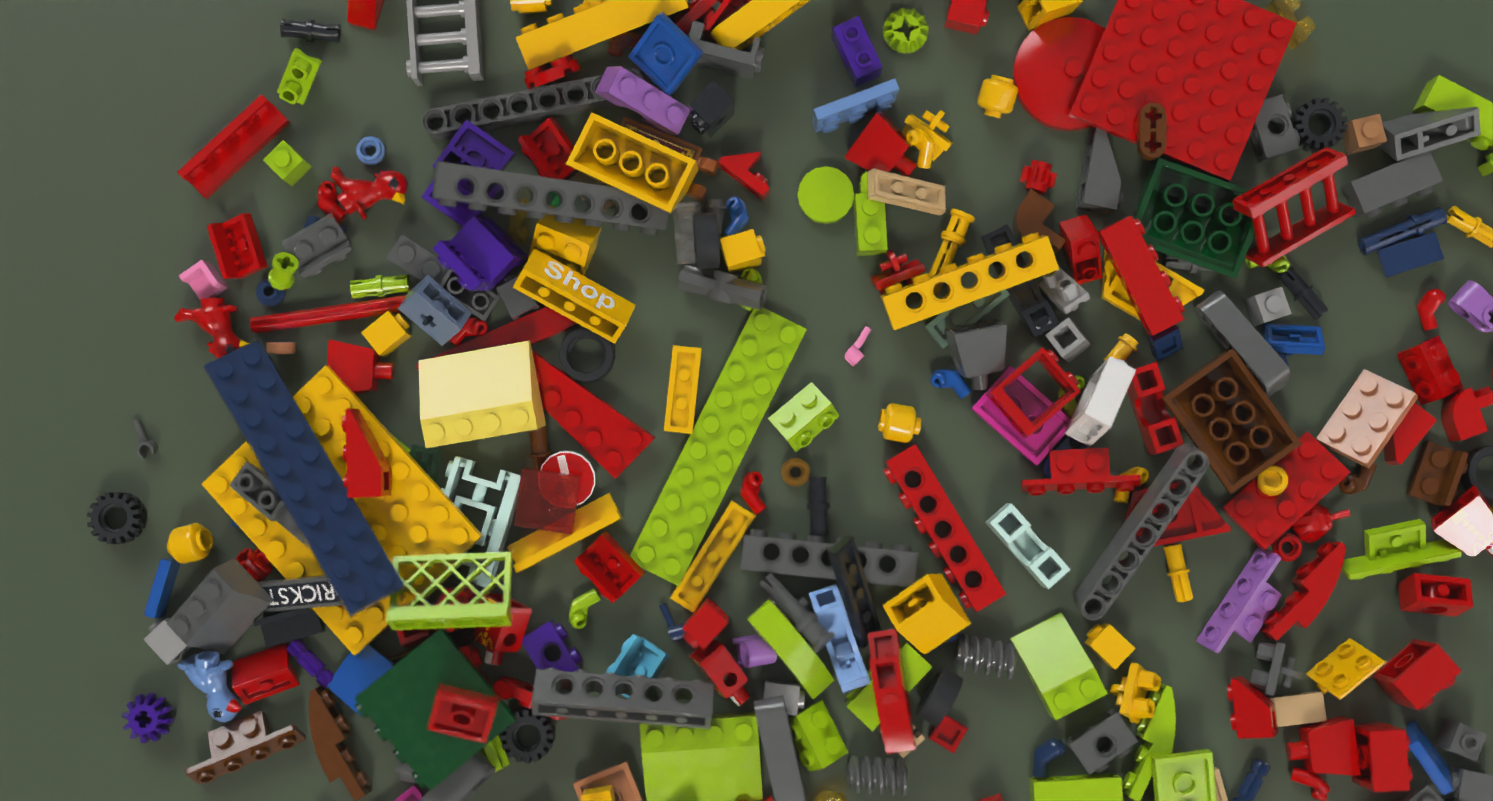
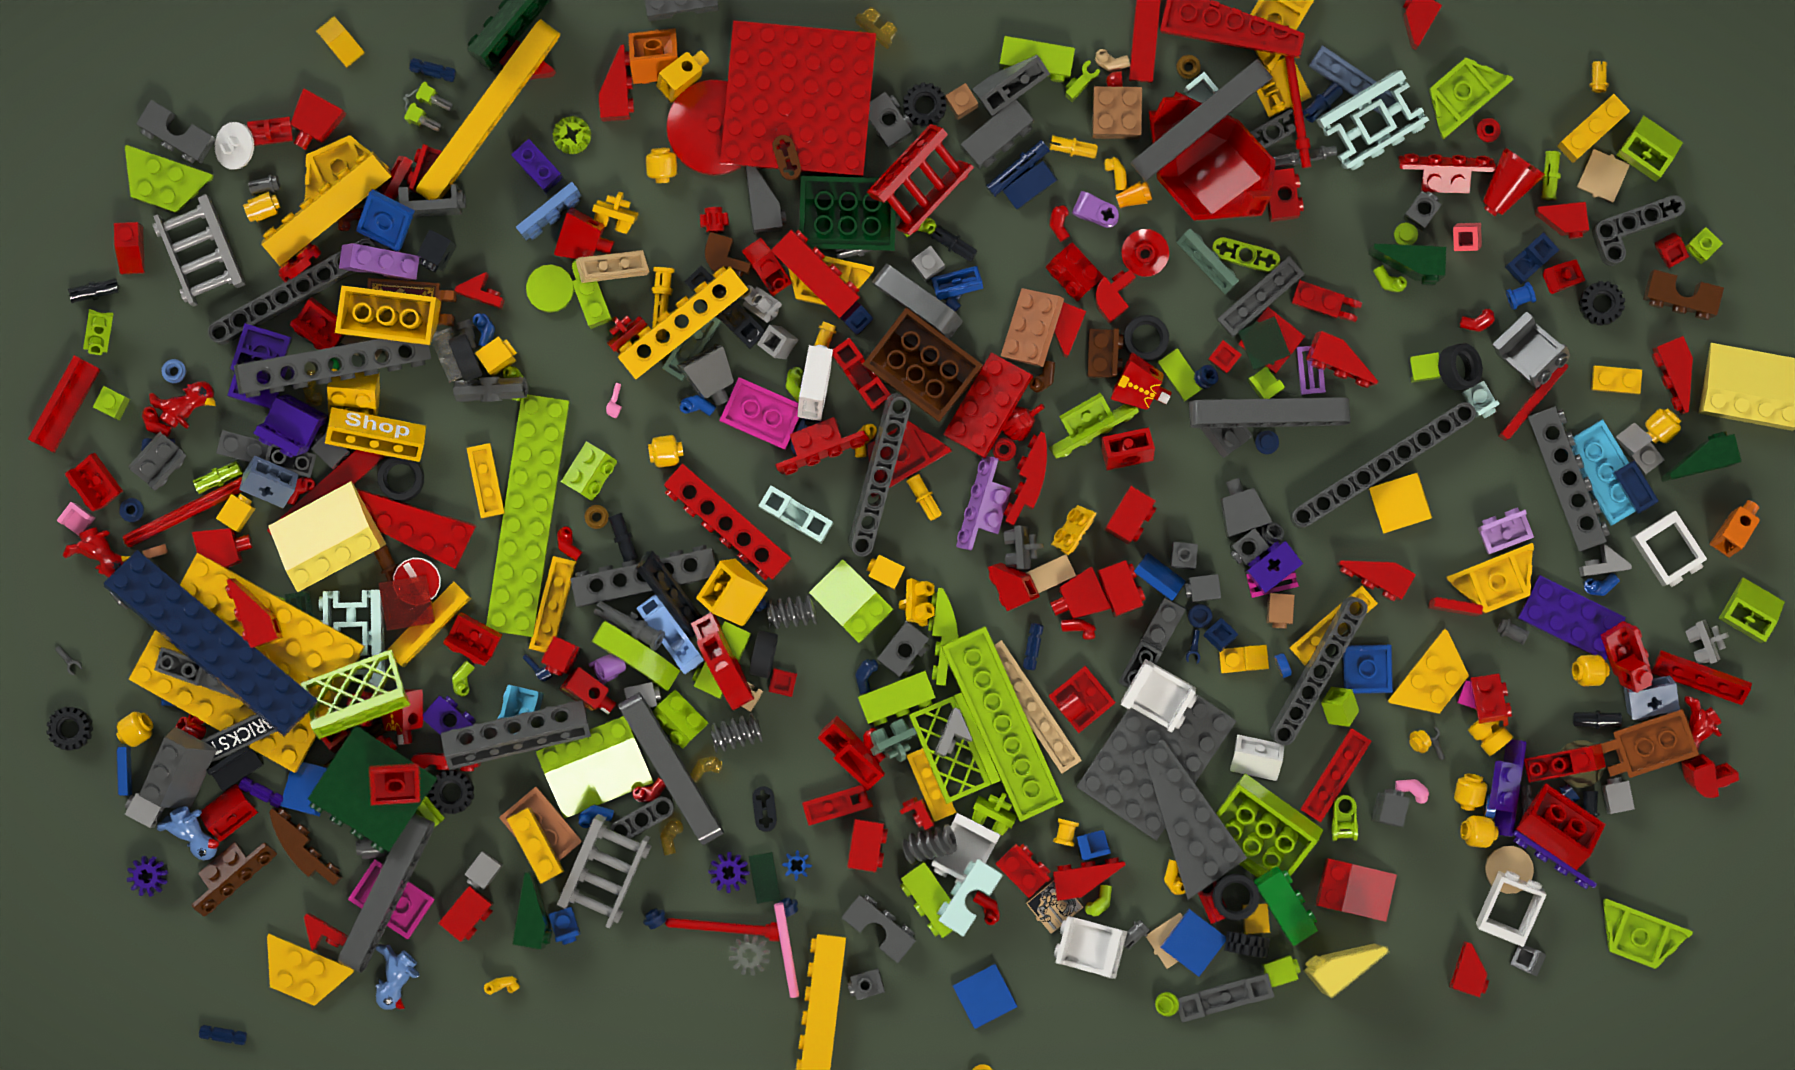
camera: 15 degrees left, 0 degrees up
(284, 267) = (137, 490): lime bush -> none
(924, 144) = (613, 223): yellow arm -> none
(1011, 411) = (750, 414): red window -> none
(1272, 480) = (972, 400): yellow tile -> none

